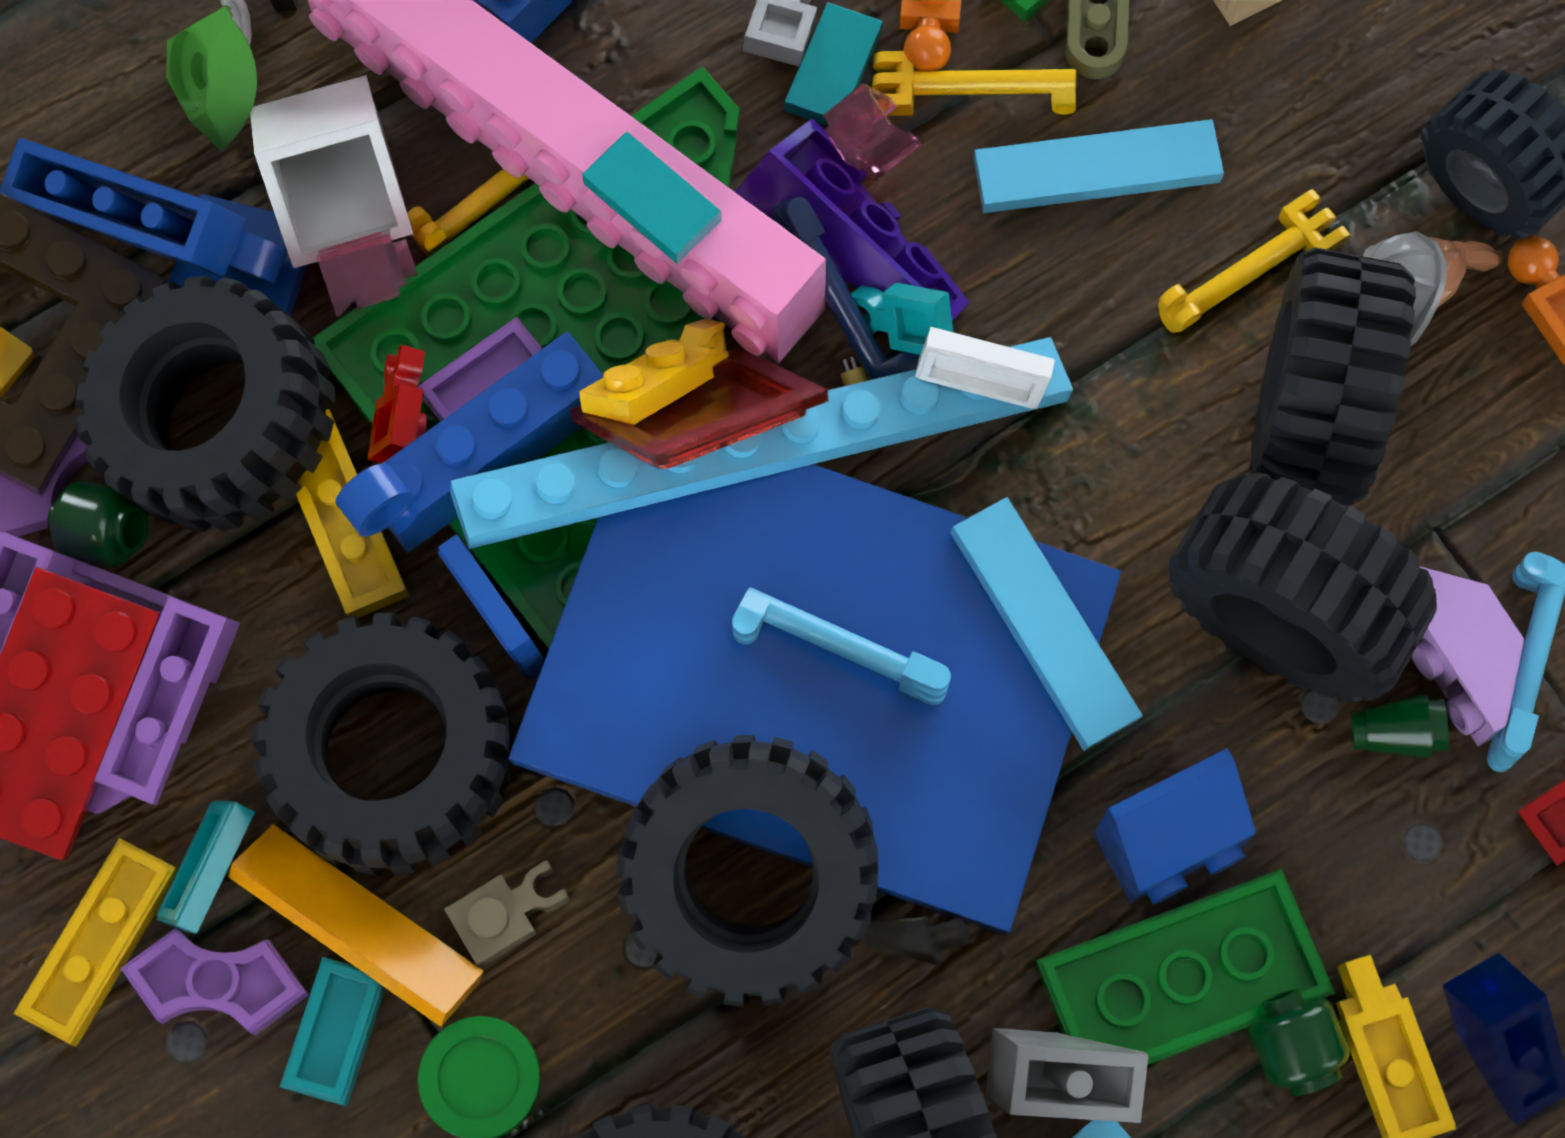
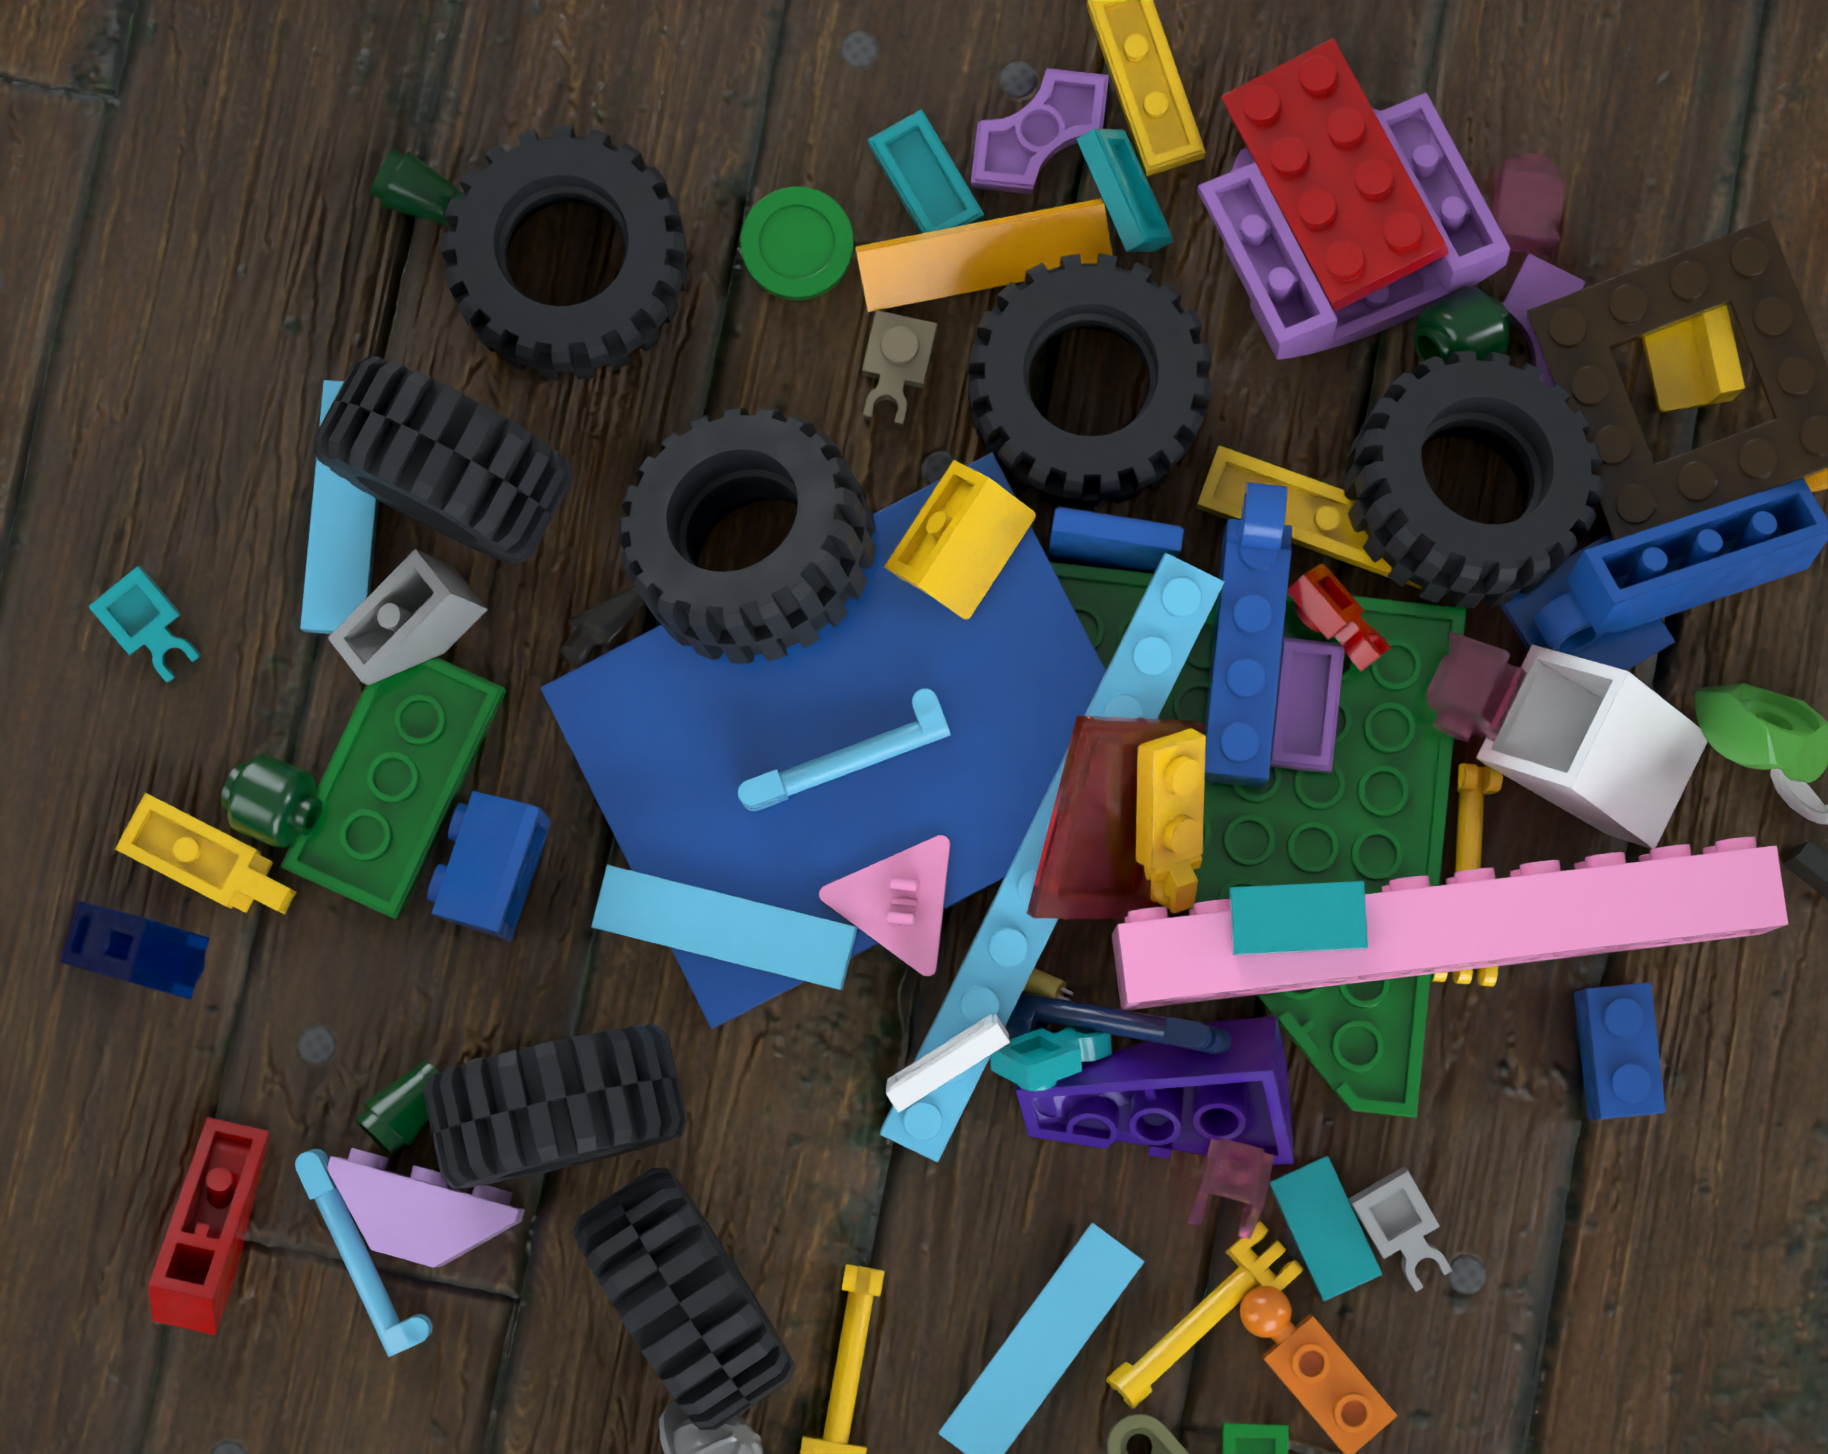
camera: 135 degrees right, 10 degrees up
(599, 714) = (961, 539): none -> yellow panel
(903, 520) = (899, 901): none -> bright pink piece

